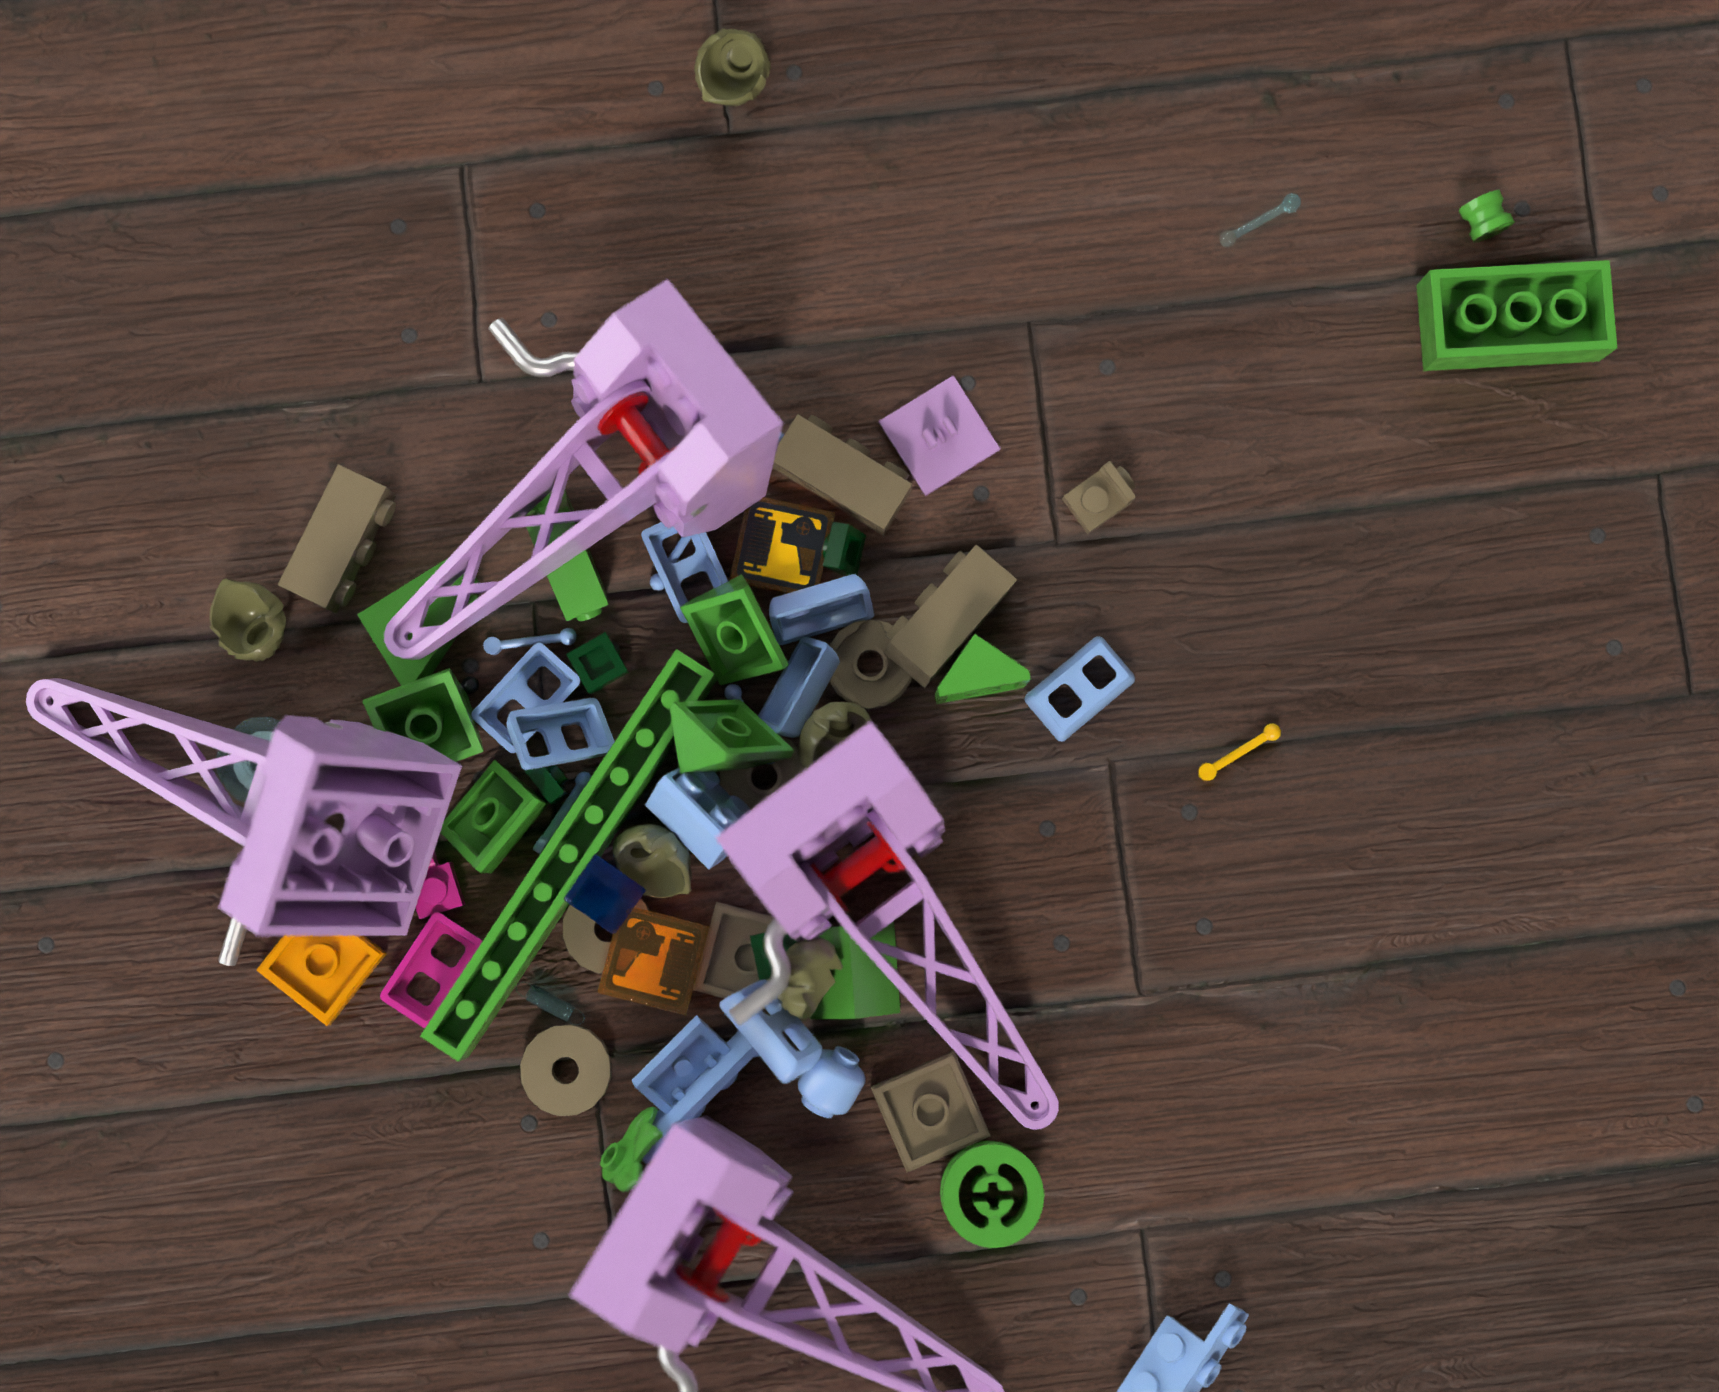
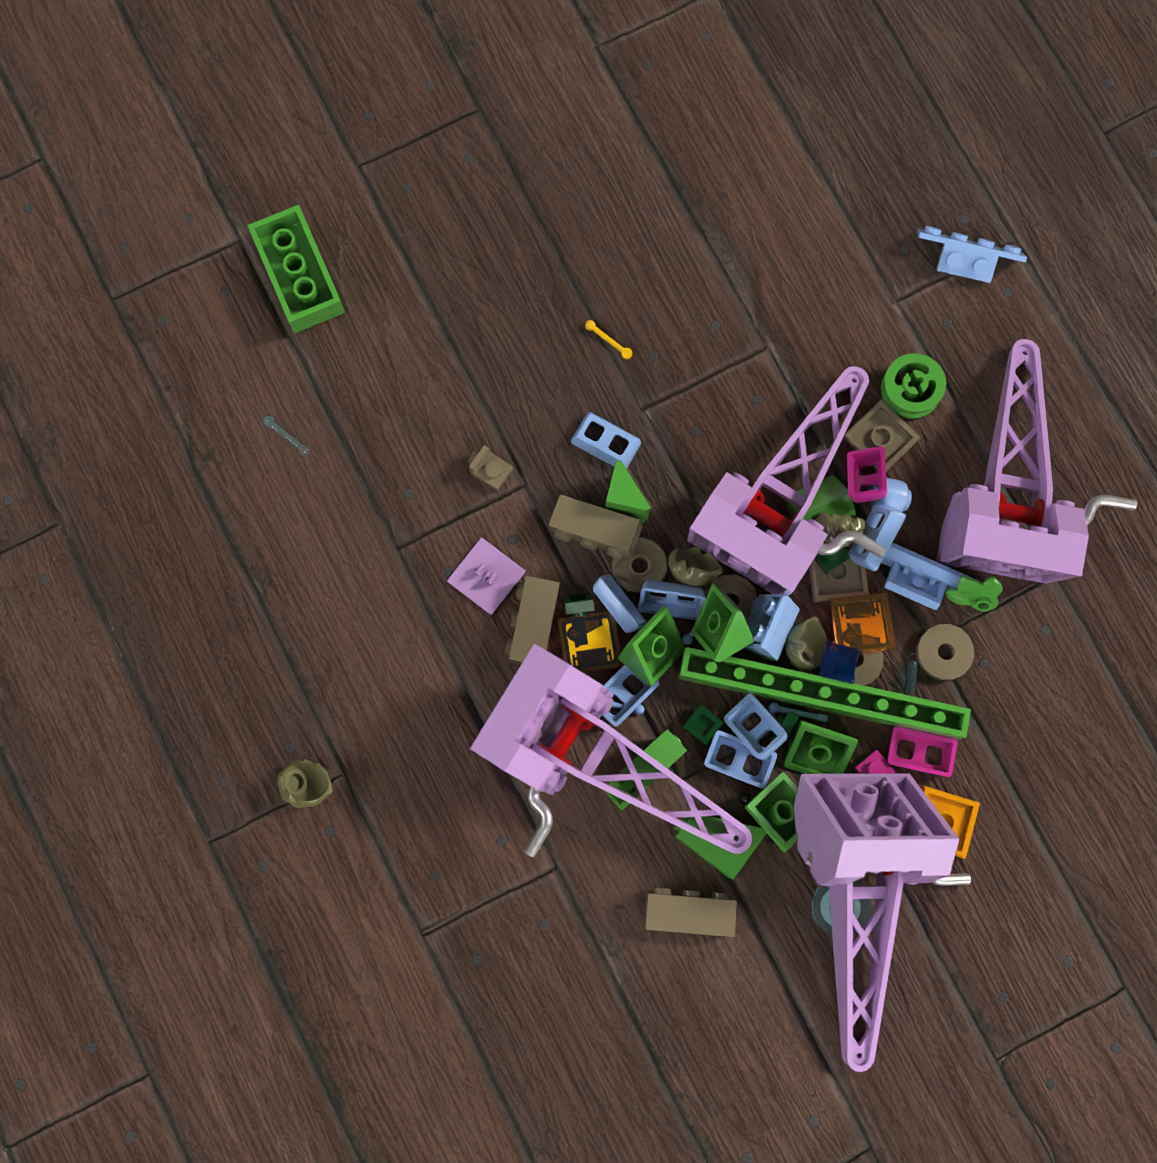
camera: 115 degrees left, 5 degrees down
(247, 620) = (762, 948): olive hair -> none
(494, 646) = (715, 794): light blue hinge -> none
(872, 1037) = (864, 458): none -> dark pink piece
(1486, 216) = (240, 306): bright green wheel -> none

